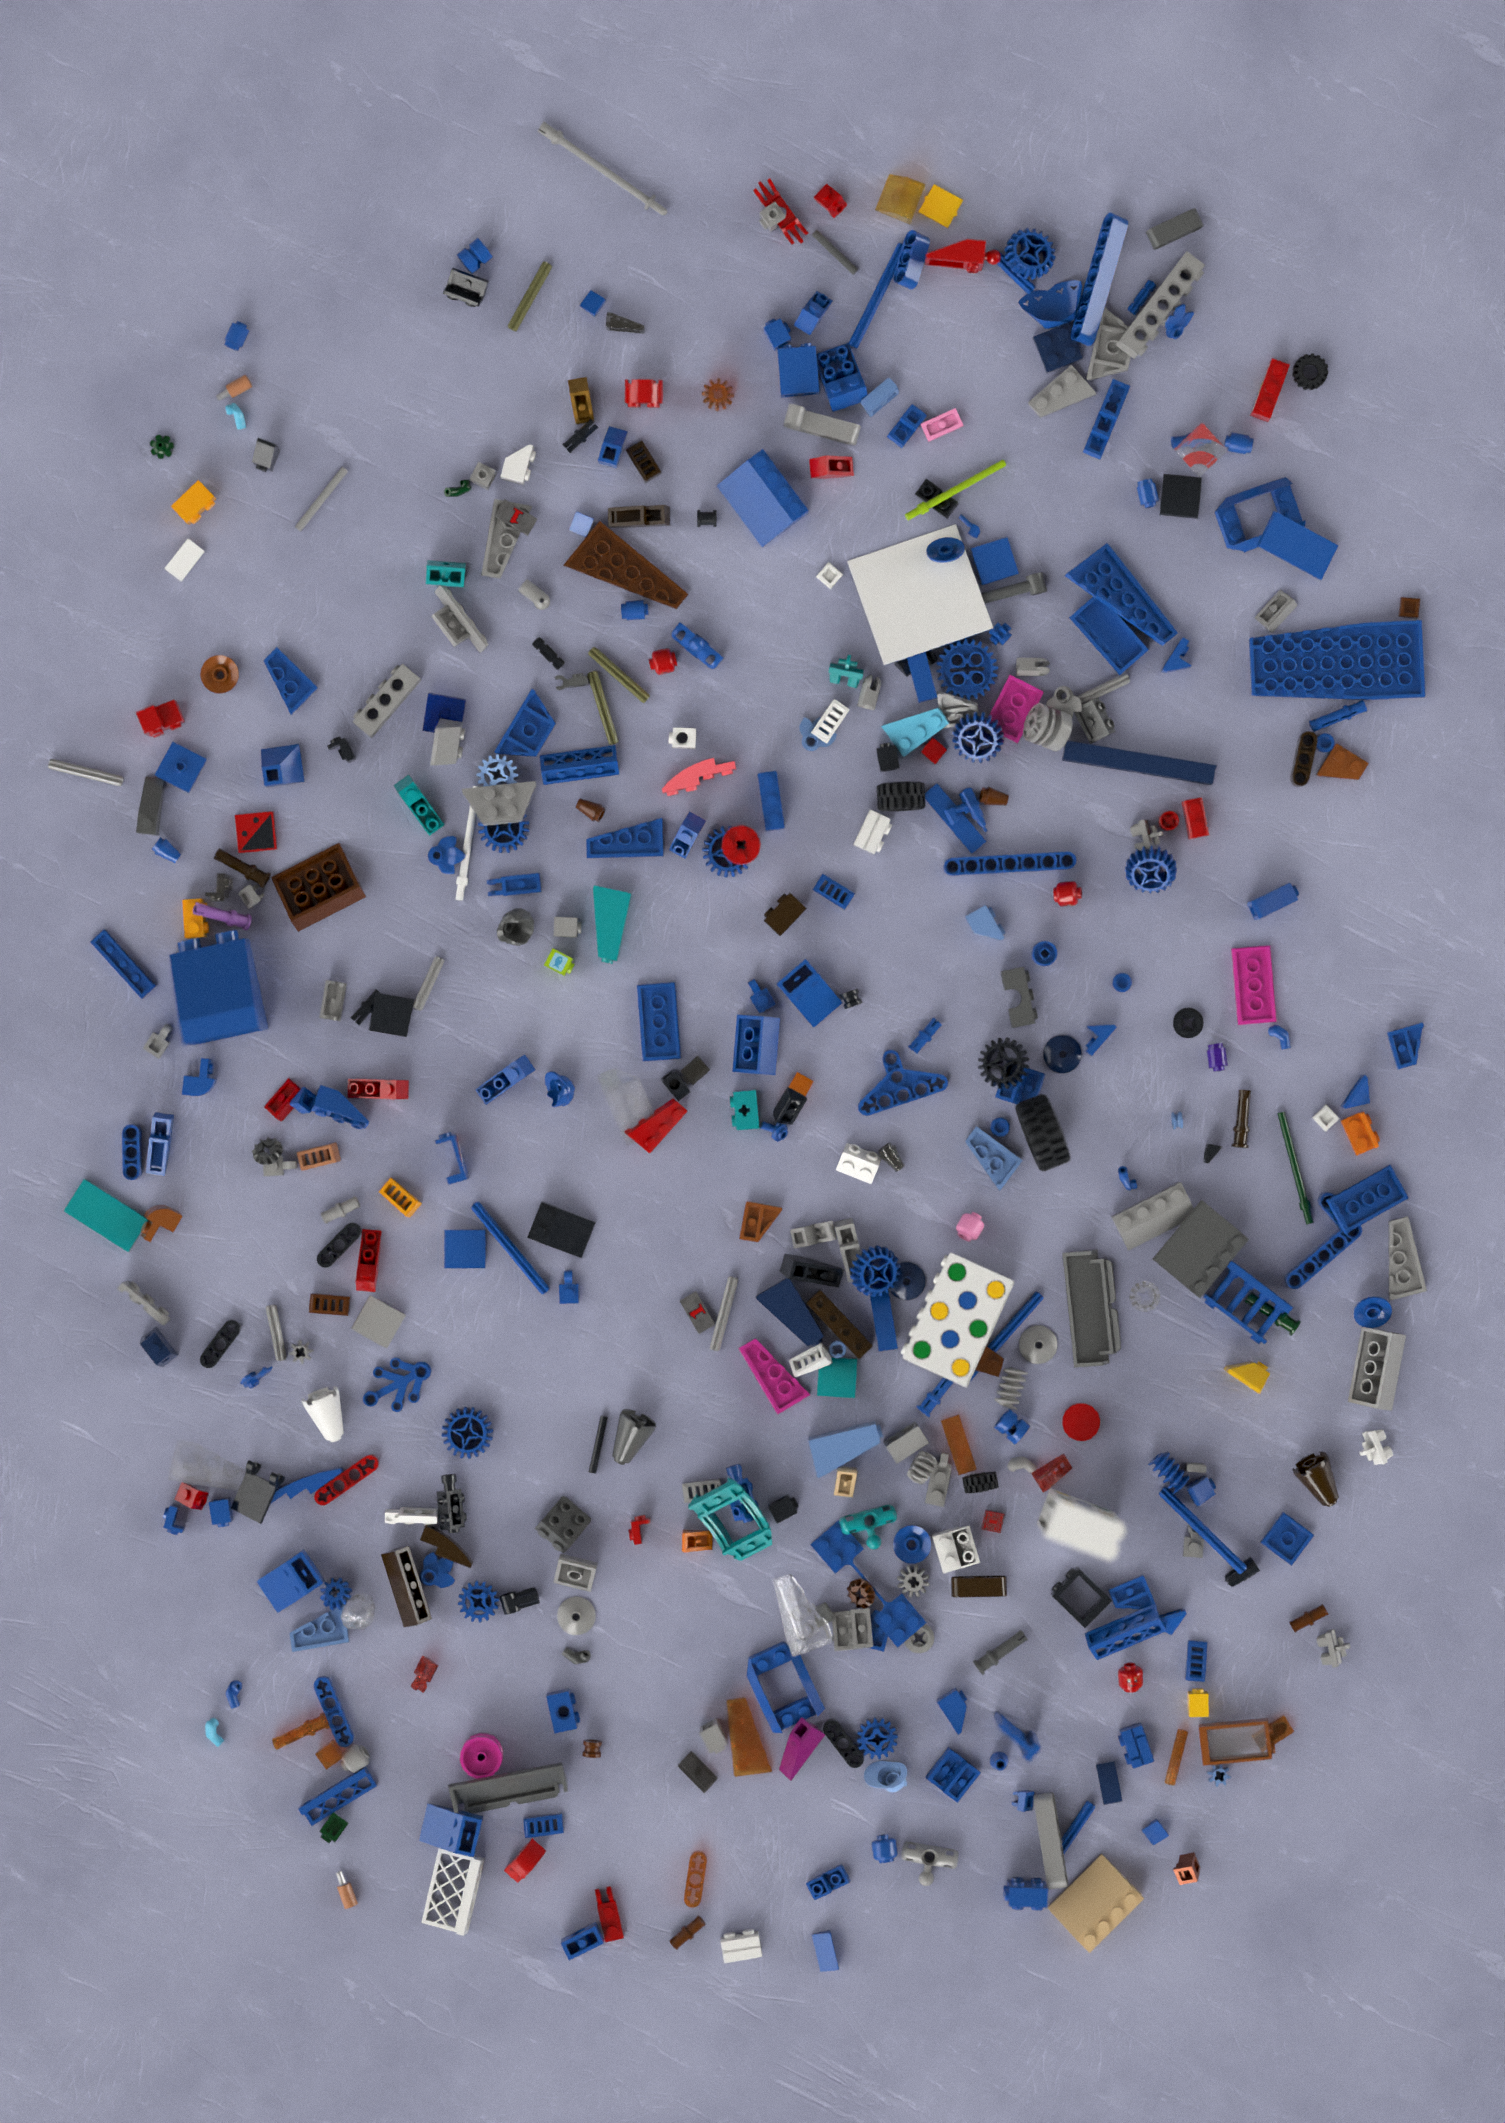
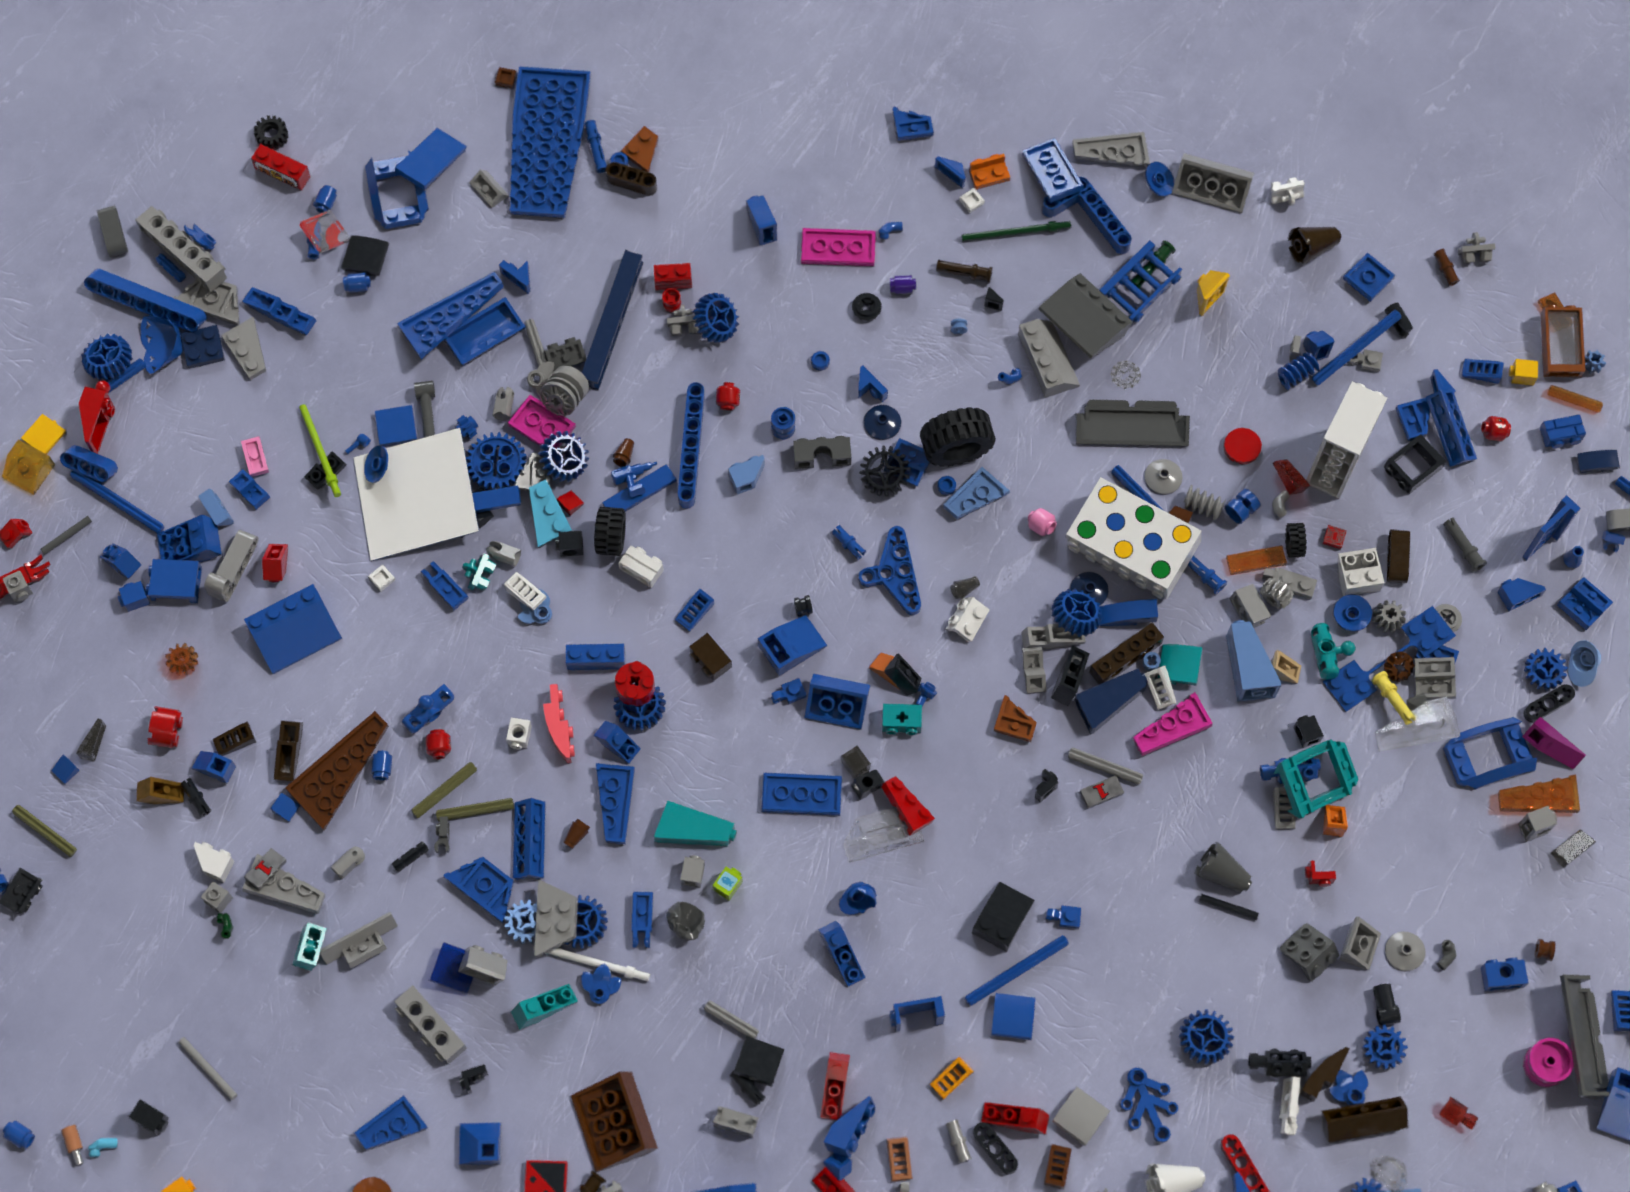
camera: 80 degrees left, 20 degrees down
(691, 1256) = (1045, 789): none -> black bracket
(706, 518) = (302, 685): black bush -> none
(827, 641) = (445, 586): none -> blue hinge
(832, 1585) = (1389, 691): none -> light yellow pin

